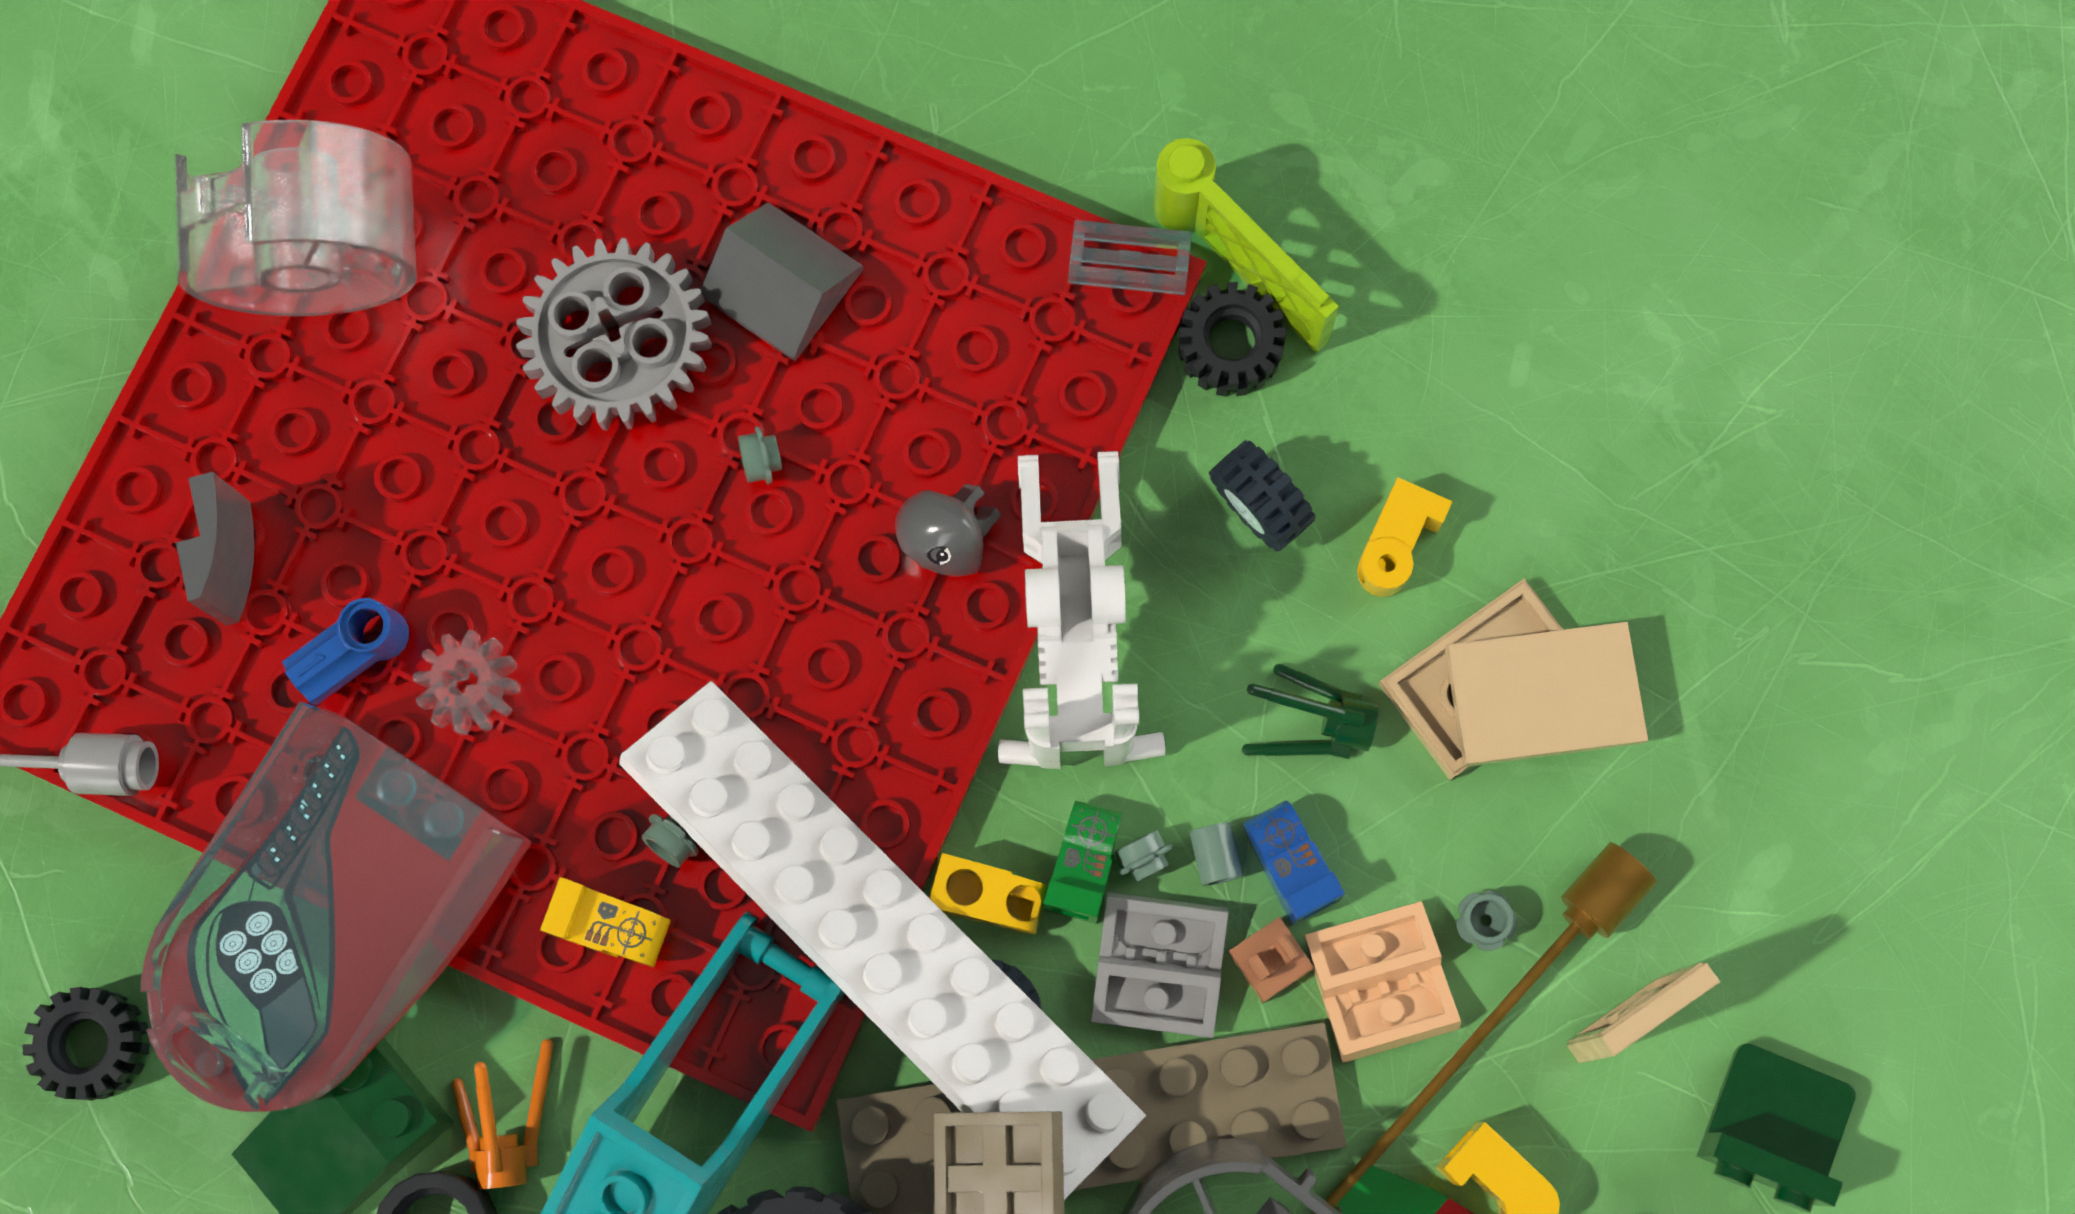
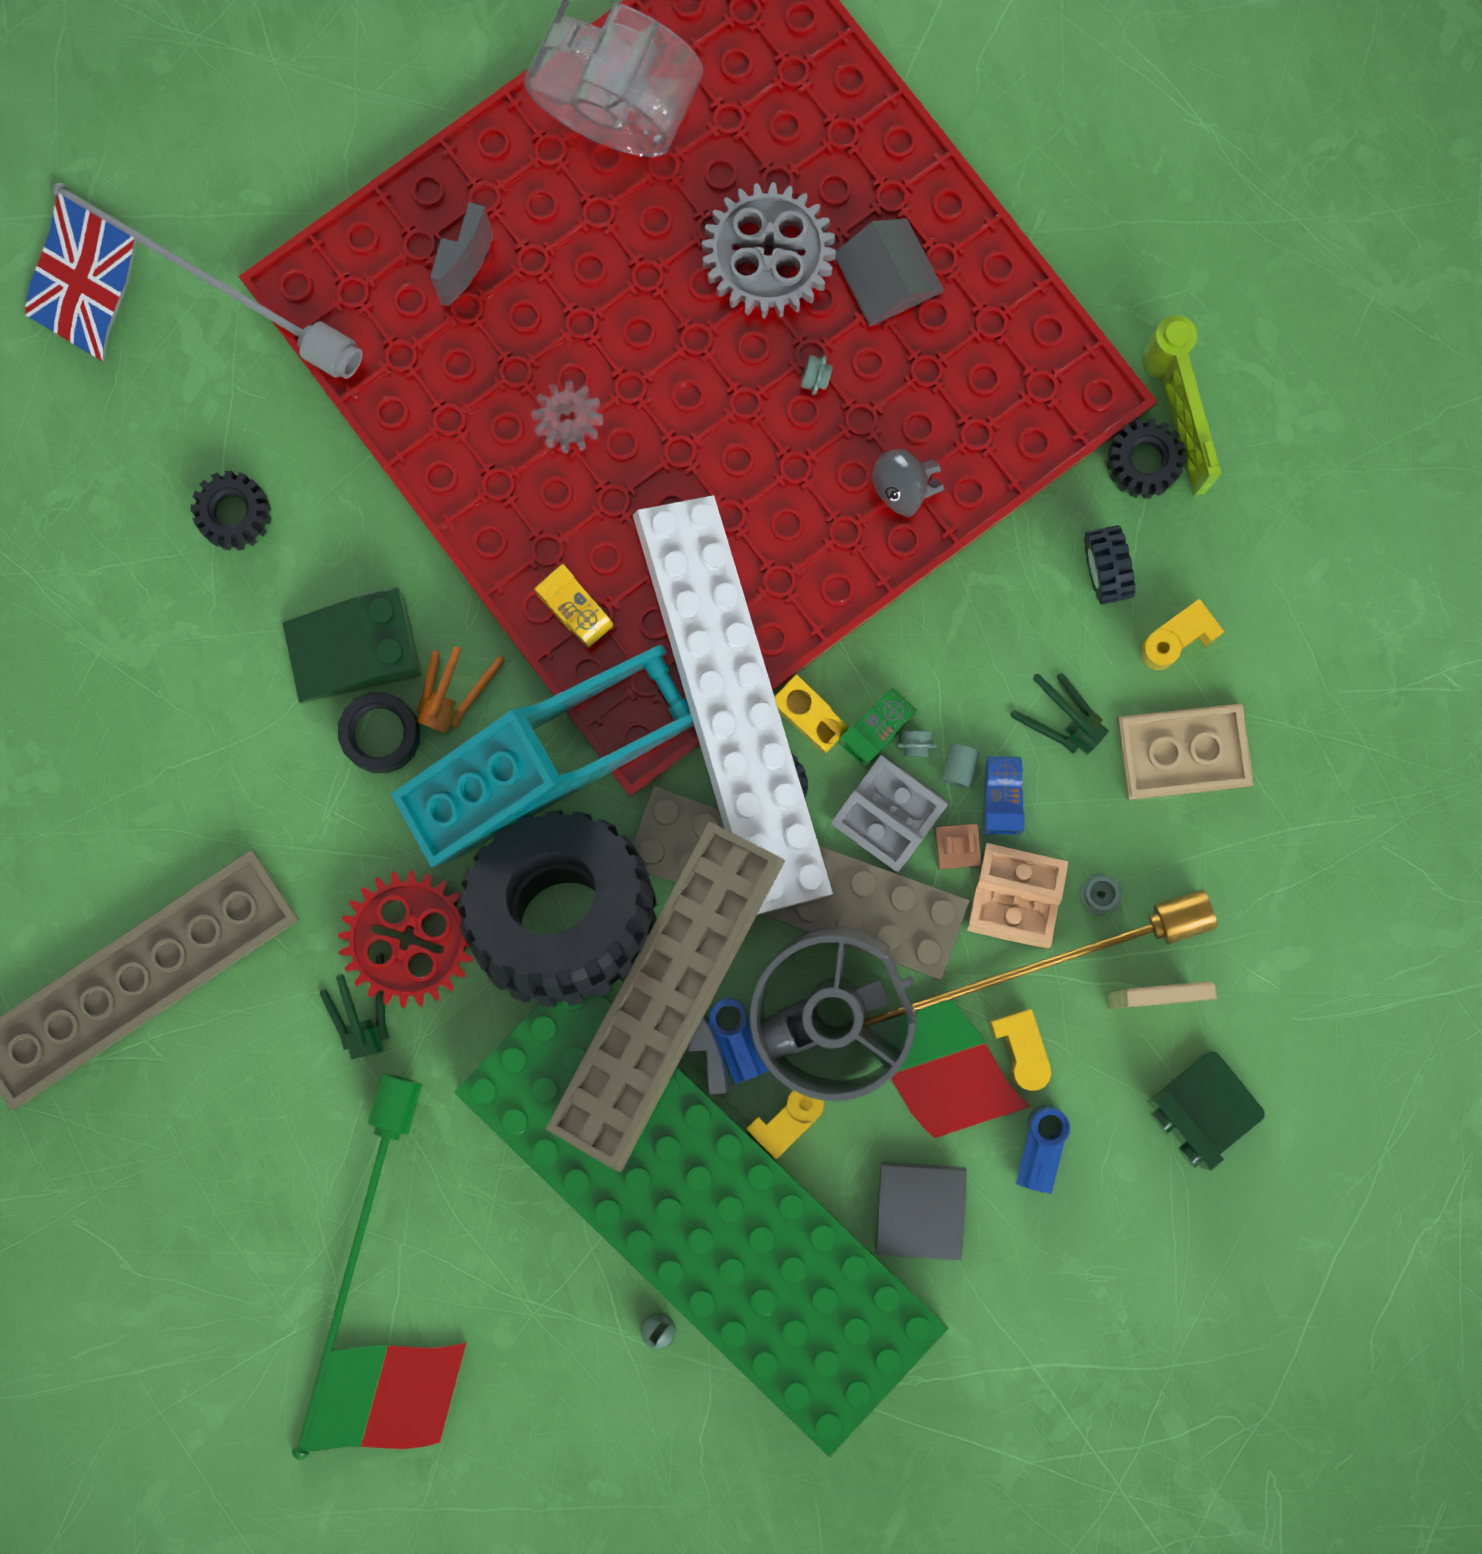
camera: 25 degrees right, 5 degrees up
(317, 916) = (408, 508): clear light blue windscreen -> none
(341, 651) = (501, 357): blue piece -> none
(669, 840) = (637, 577): sand green plate -> none
(1076, 616) = (956, 571): white piece -> none
(1123, 278) = (1103, 387): clear light blue tile -> none
(1546, 694) = (1214, 779): tan tile -> none

